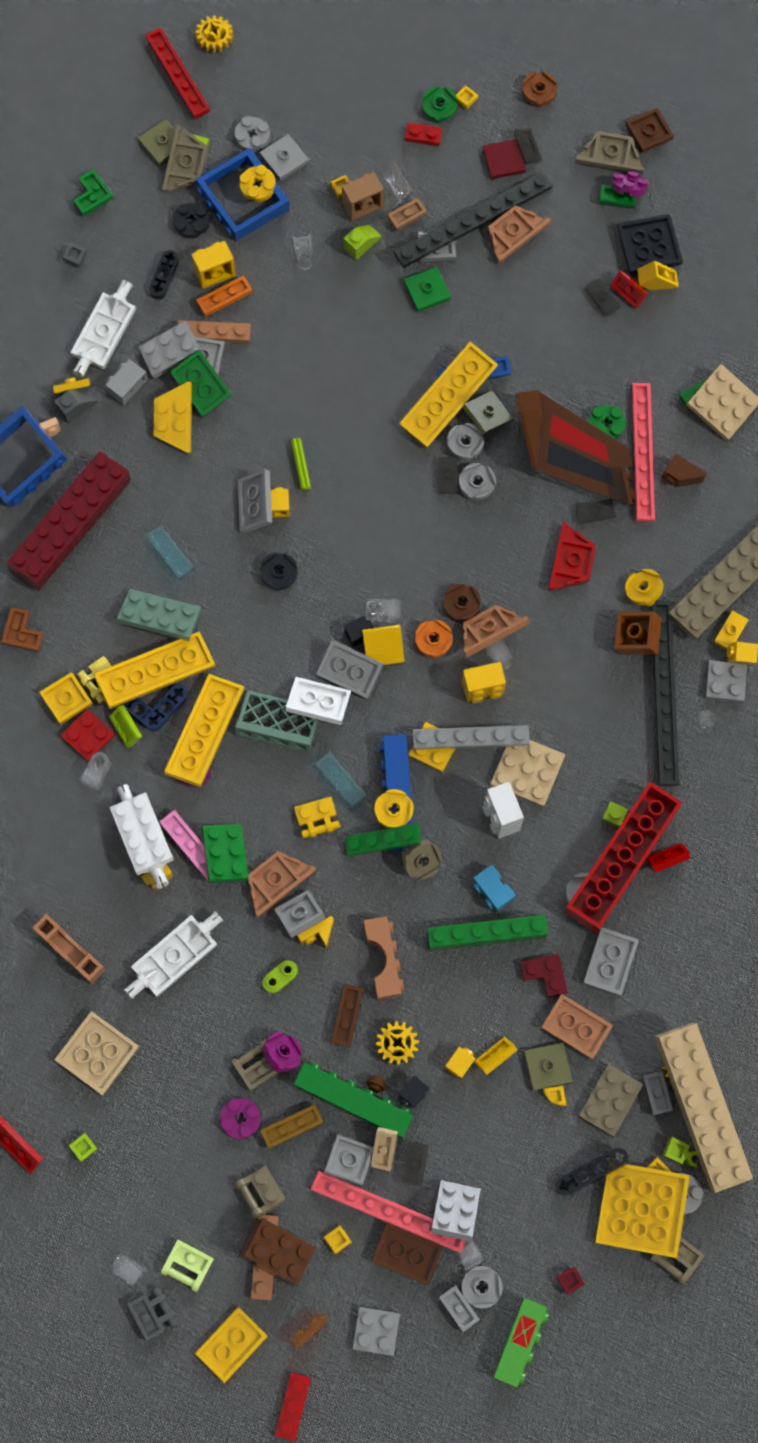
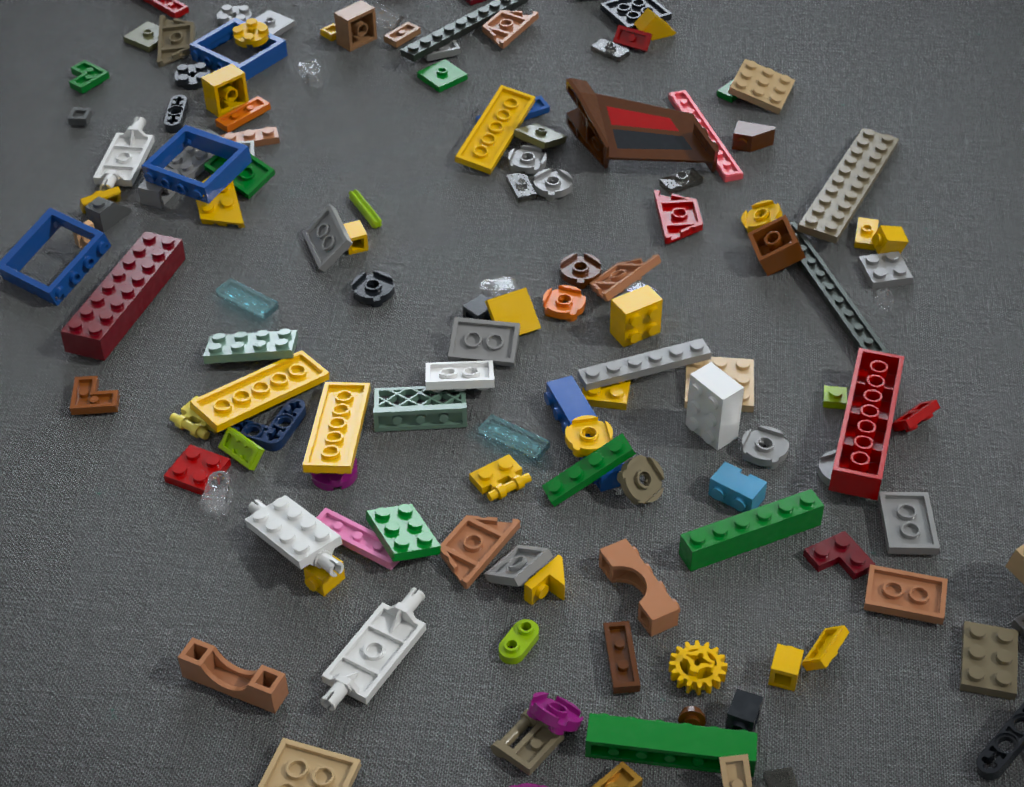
camera: 15 degrees left, 30 degrees down
(66, 698) = (161, 441): yellow plate -> none
(179, 404) = (236, 153): none -> blue window
(360, 240) = (363, 57): lime slope -> none
(545, 851) = (769, 457): none -> light grey plate
(548, 1066) = (894, 645): olive plate -> none
(555, 1095) = (920, 673): yellow tile -> none

